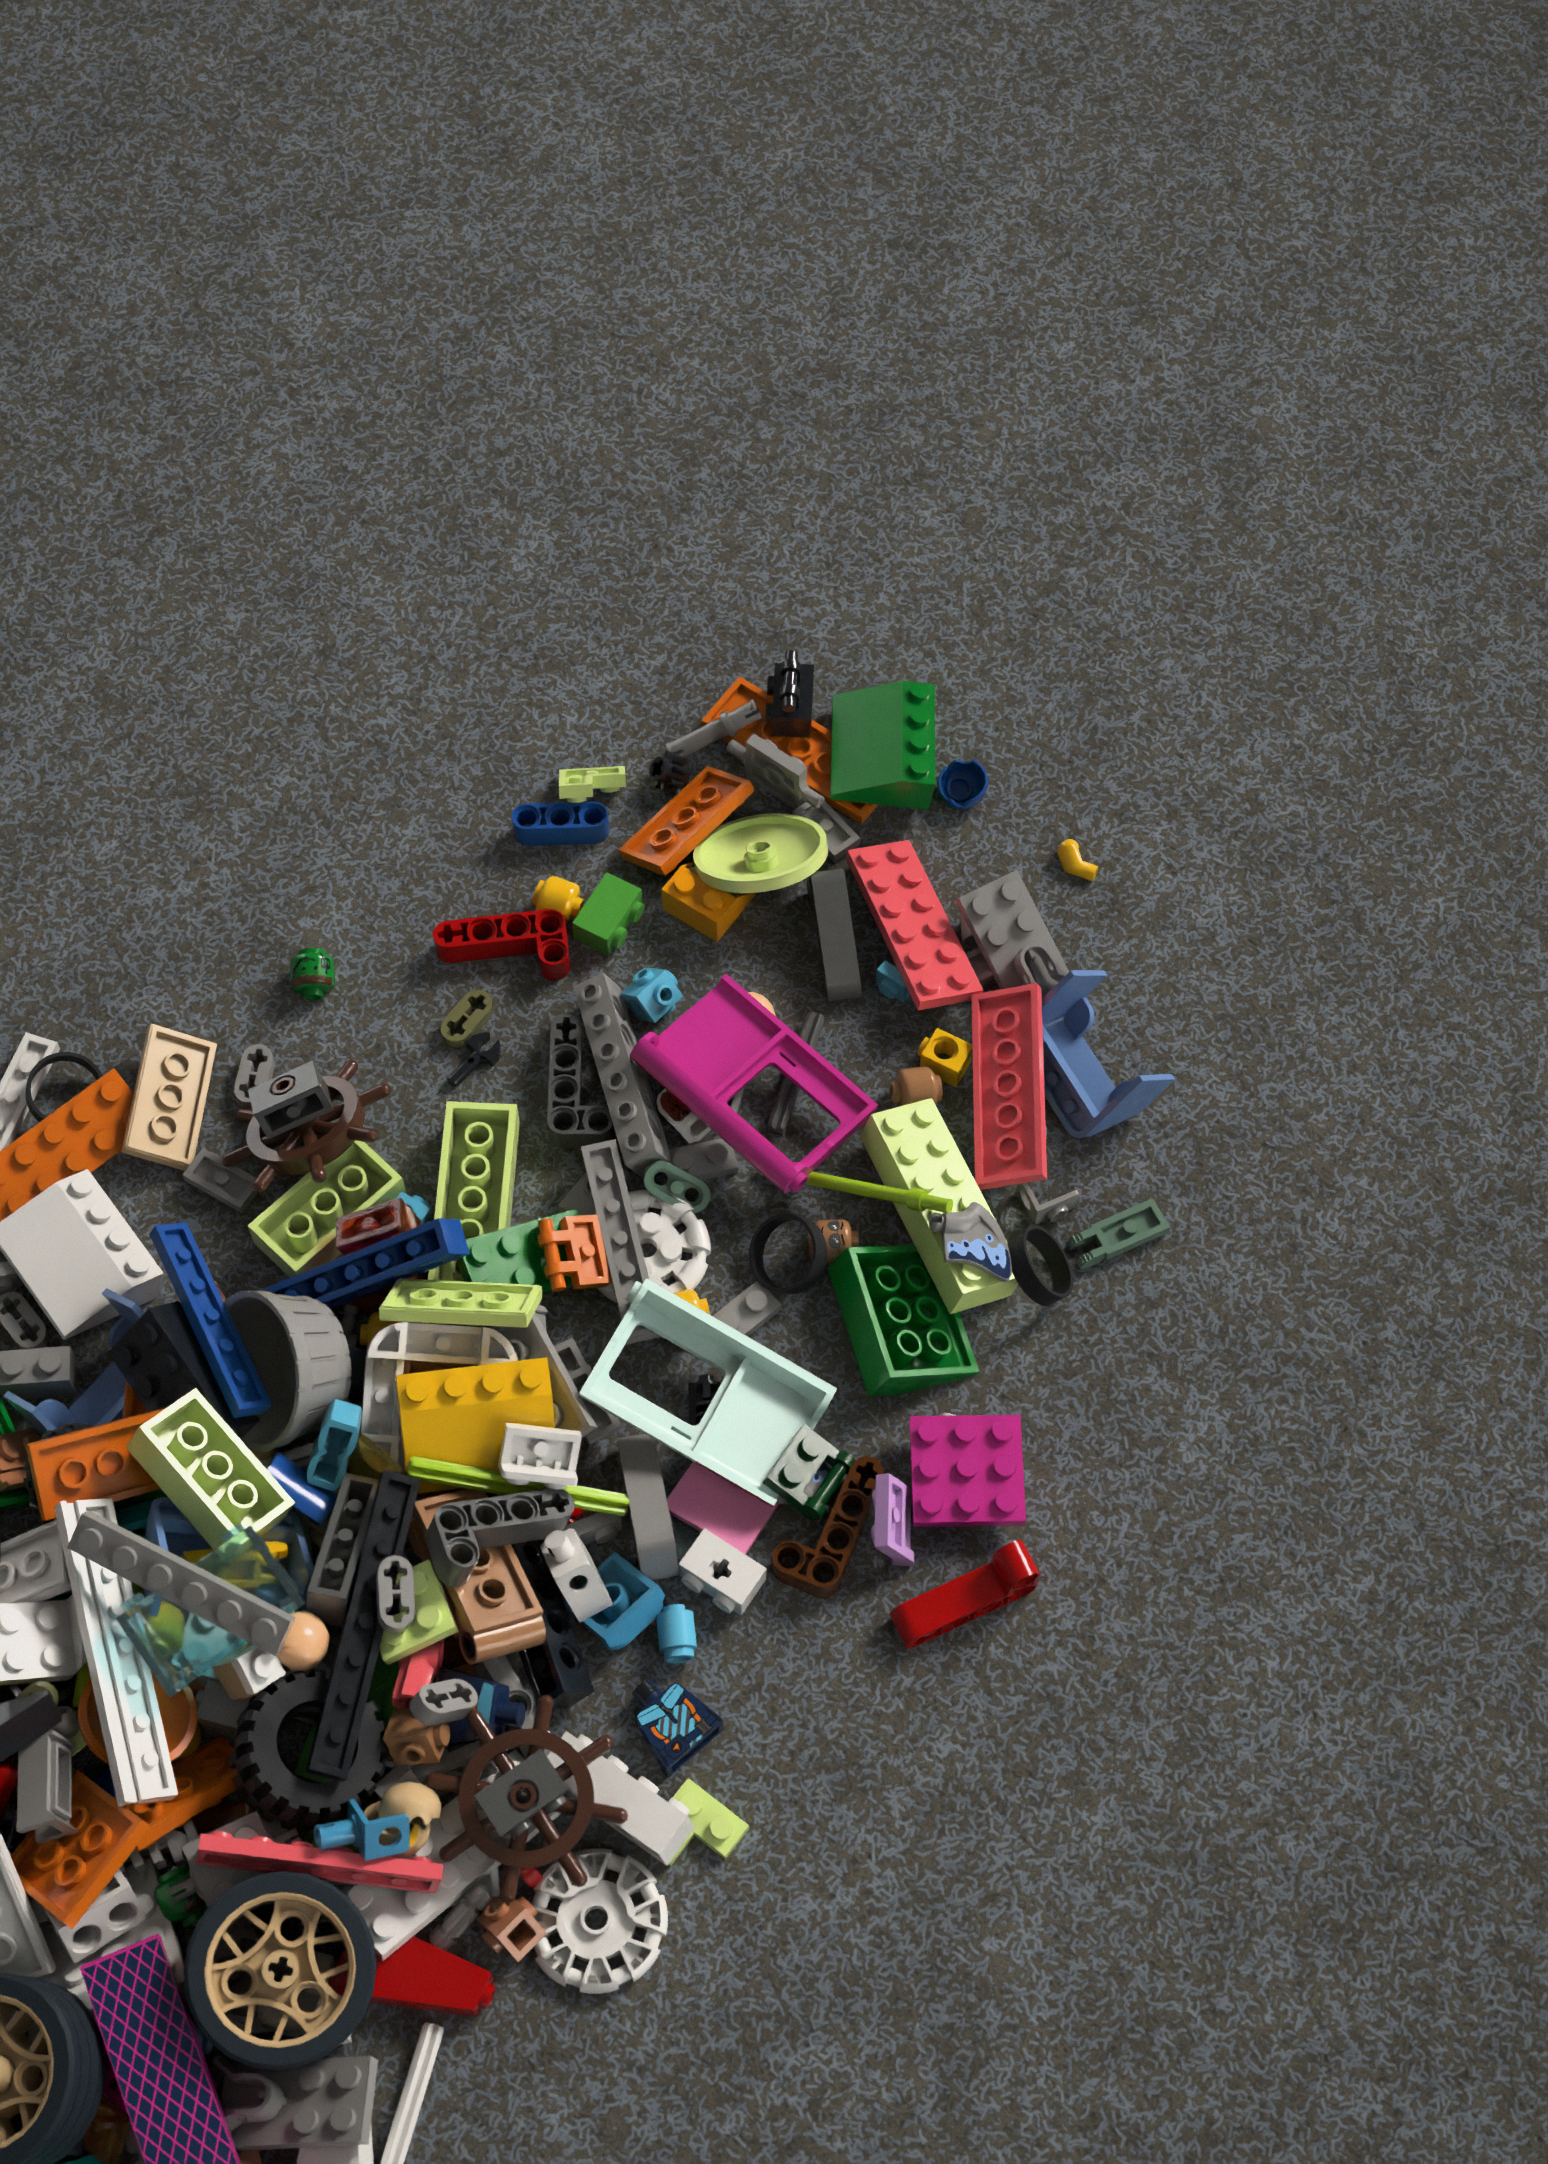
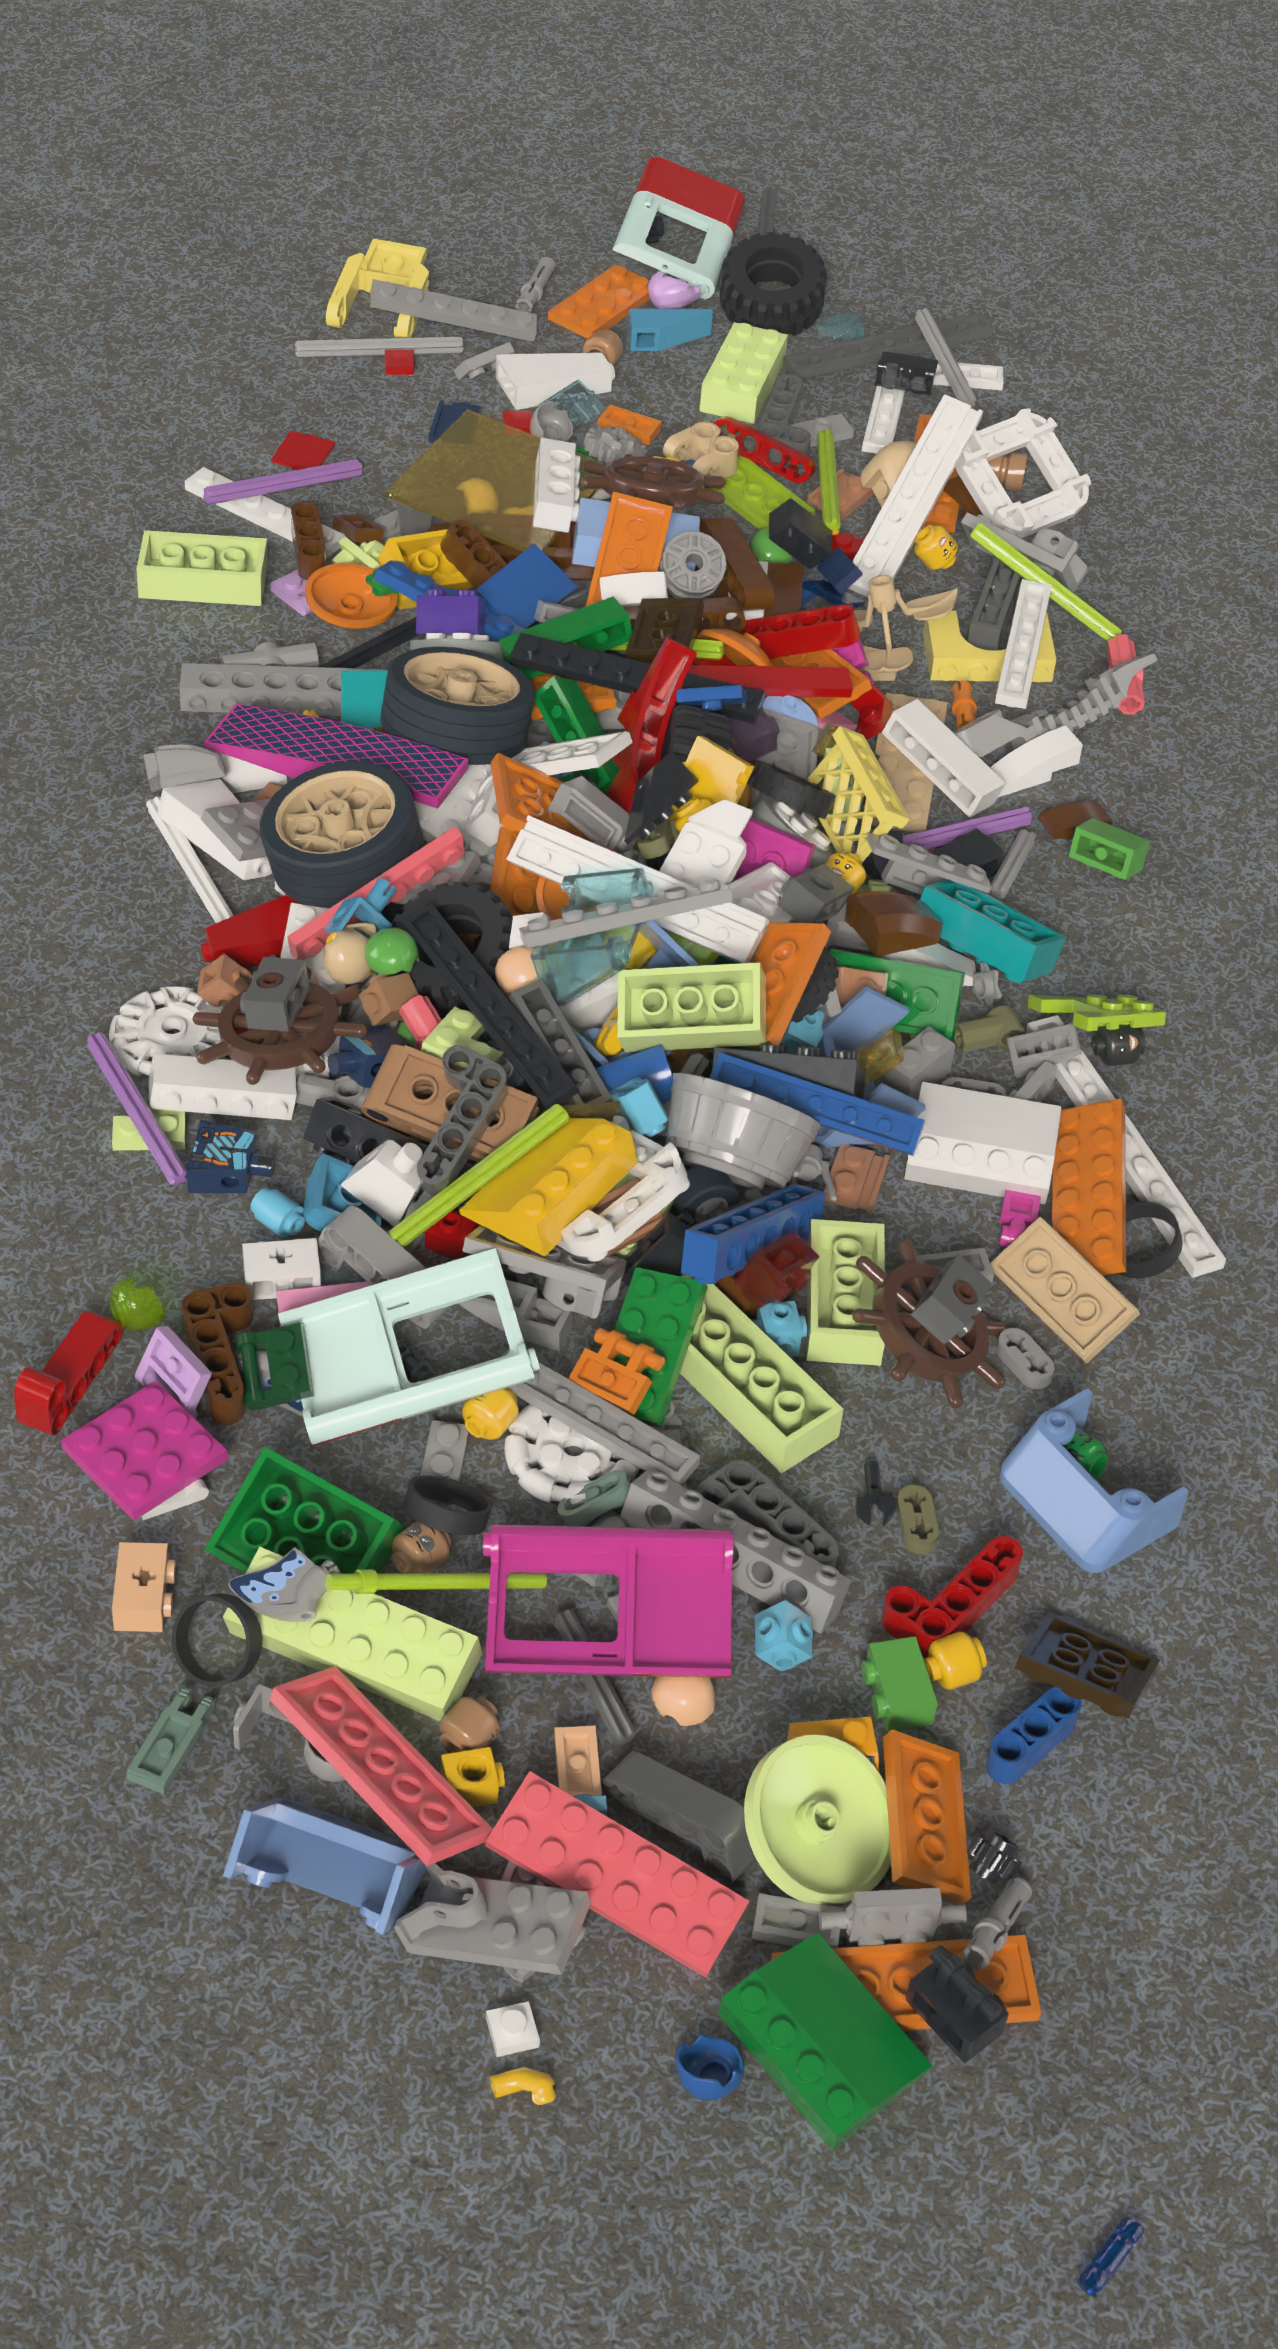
camera: 135 degrees right, 15 degrees down
(78, 1387) = (882, 1055): none -> clear yellow plate
(121, 1186) = (1017, 1214): none -> dark pink plate
(354, 978) = (1072, 1505): none -> medium blue windscreen
(384, 1758) = (391, 951): none -> bright green hair
(404, 1594) = (486, 1018): light grey beam -> none
(443, 1701) = (378, 1007): light grey beam -> none
(461, 1303) = (640, 1230): yellowish green tile -> none
(484, 826) = (1087, 1665): none -> dark brown plate
(539, 1455) = (475, 1180): white bracket -> none
(579, 783) = (1063, 1787): yellowish green plate -> none
(706, 1833) = (137, 1109): none -> medium lavender axle
(833, 551) = (1111, 2256): none -> clear blue axle
(866, 1018) = (577, 1760): none -> light nougat plate
(875, 1616) = (135, 1307): none -> clear neon green hair
(1047, 1381) = (141, 1587): none -> light nougat brick
(1054, 897) = (512, 2029): none -> white plate

